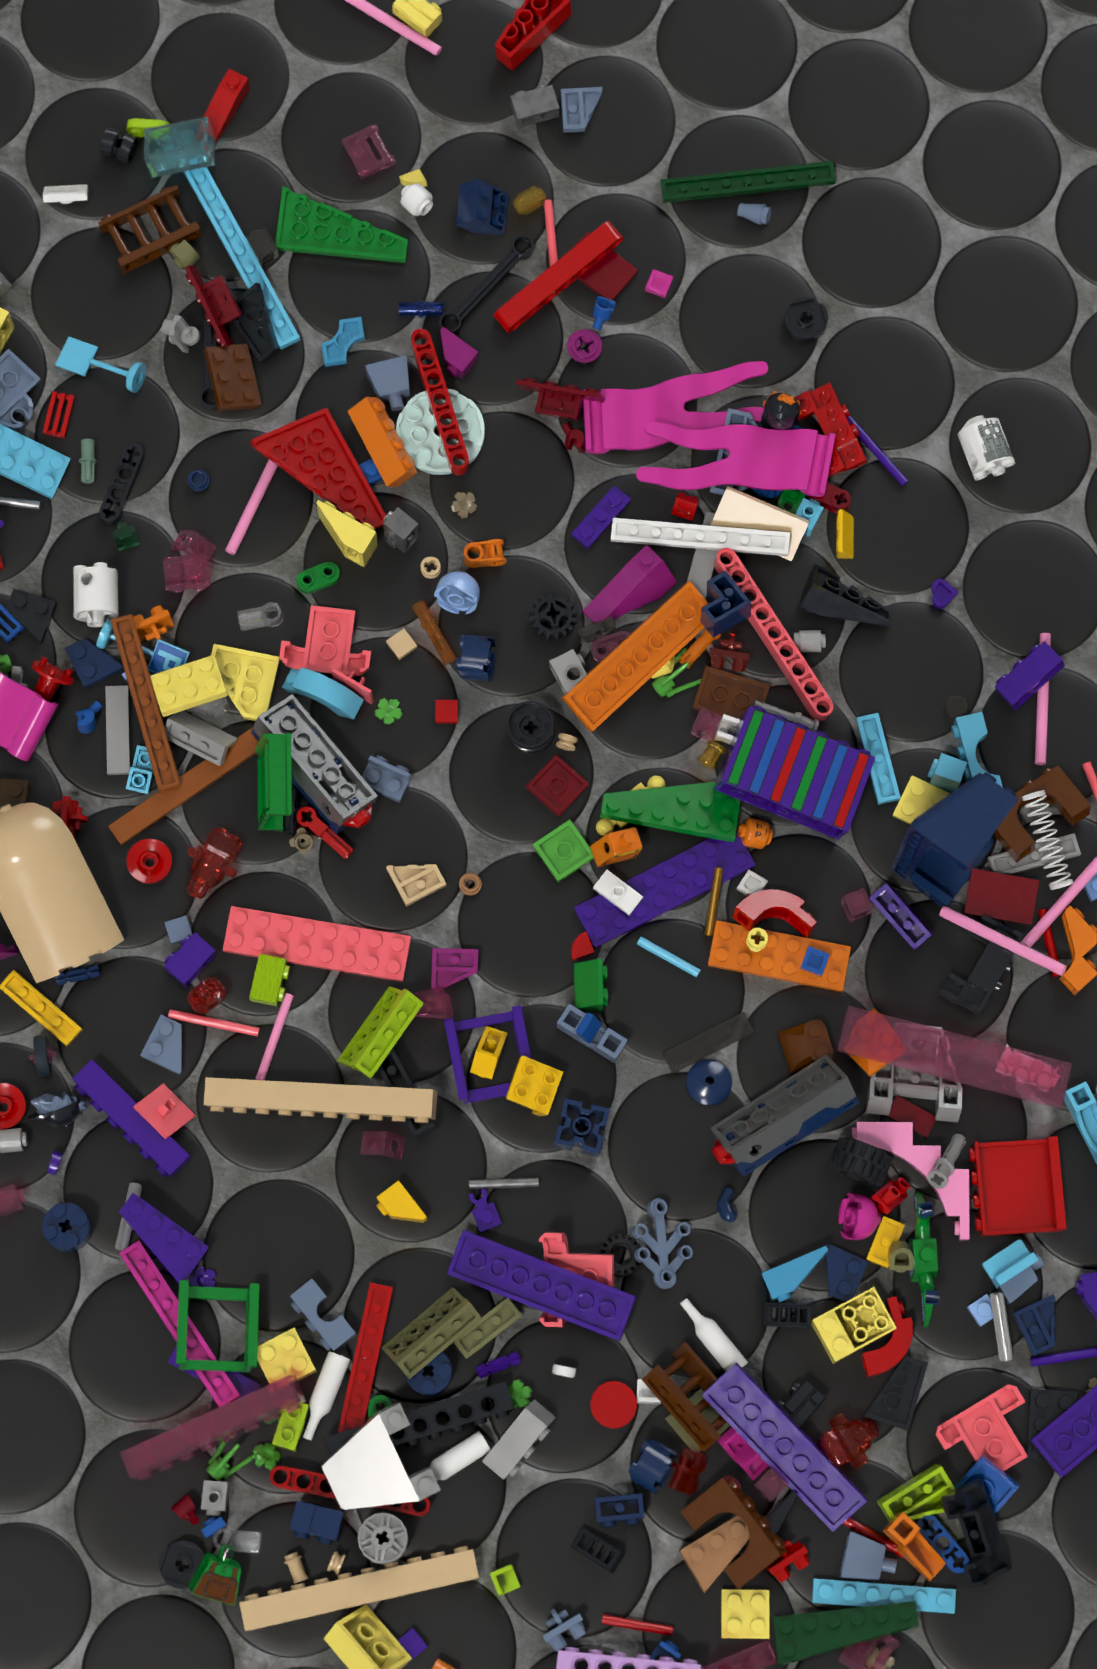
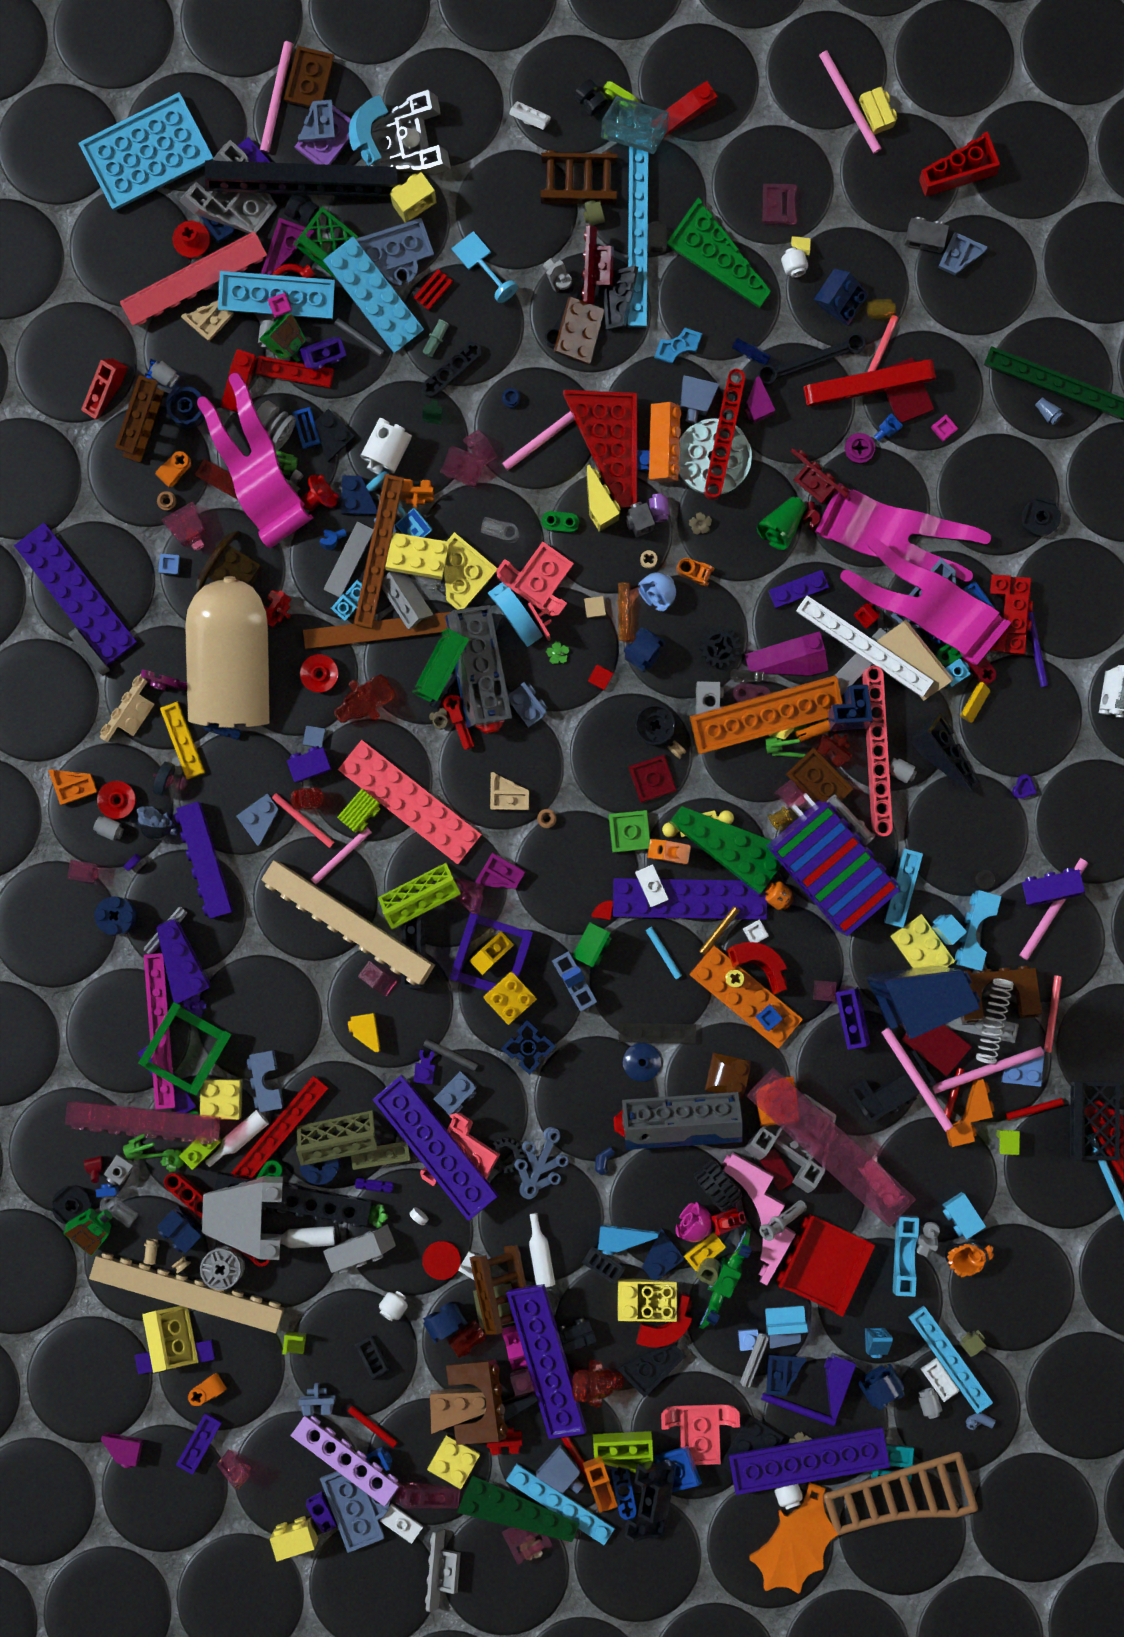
camera: 30 degrees right, 10 degrees up
(164, 1111) = (231, 868): coral piece -> none
(414, 508) = (659, 507): none -> medium lavender brick
(531, 1220) = (455, 1093): none -> sand blue bracket
(547, 460) = (782, 523): none -> green cone
(589, 1480) = (393, 1306): none -> white head
(619, 1508) = (403, 1339): dark blue brick -> none
(780, 411) = (978, 582): black hair -> none

